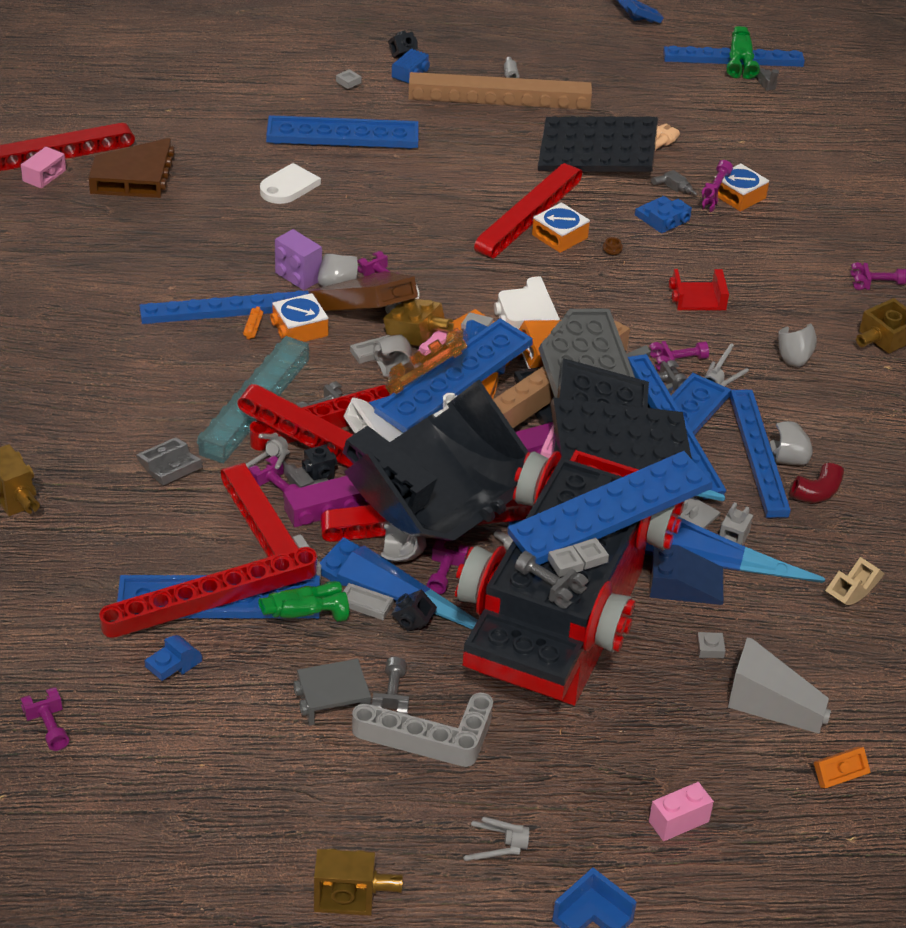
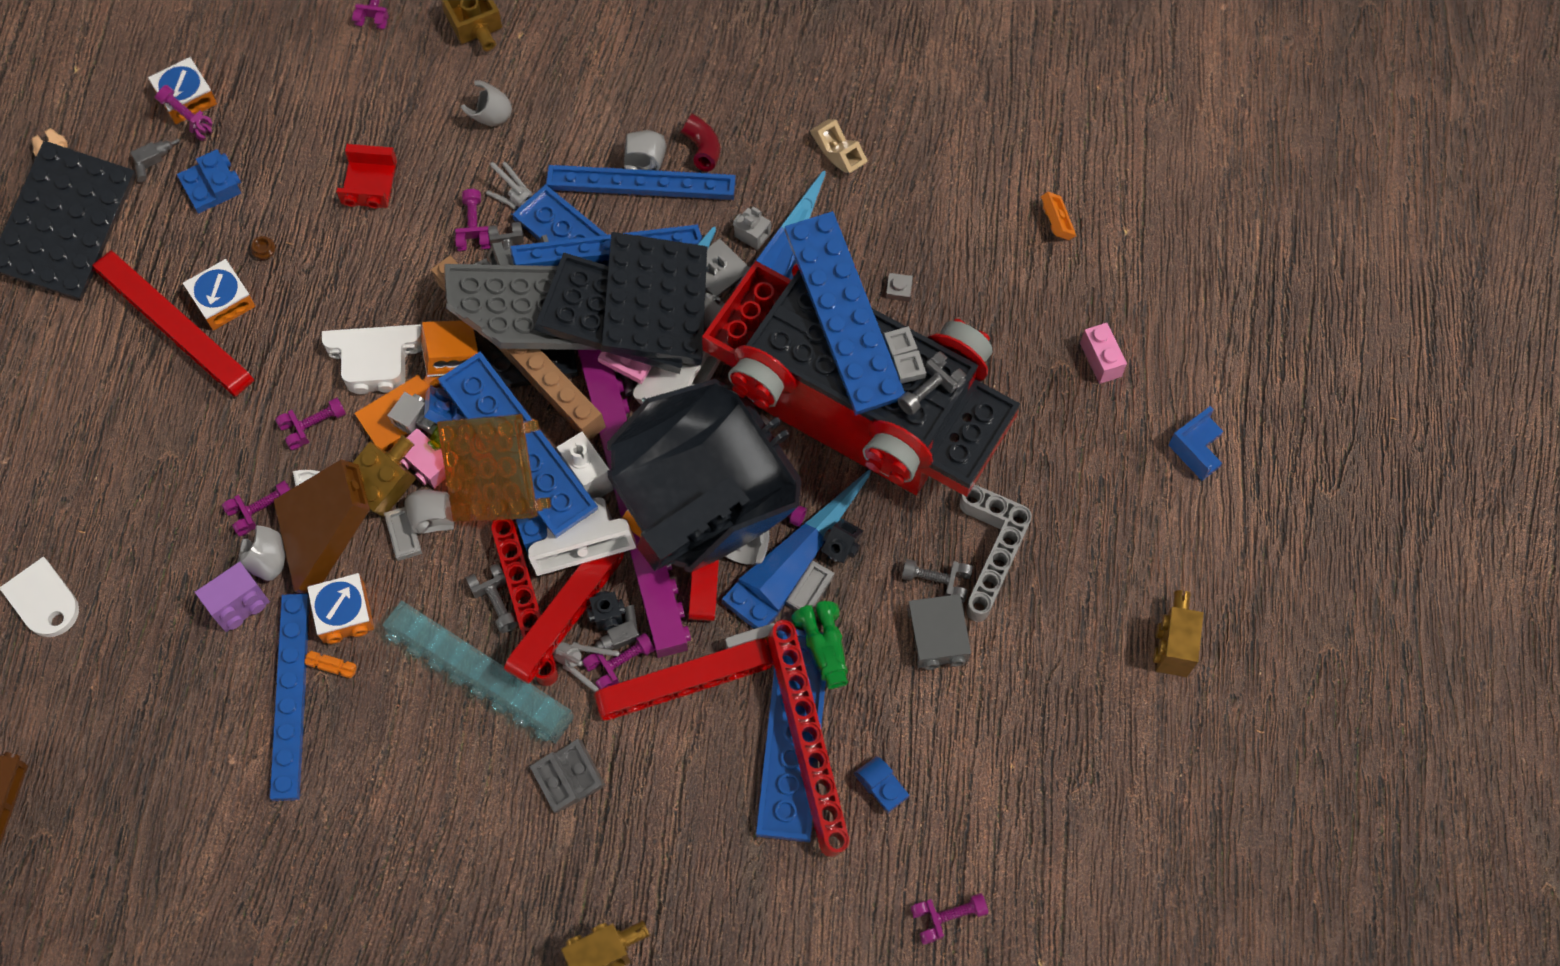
camera: 80 degrees left, 25 degrees up
(459, 281) = (289, 419): none -> magenta bar
(515, 835) = (1121, 495): light grey plant -> none
(775, 691) = (968, 249): light grey slope -> none

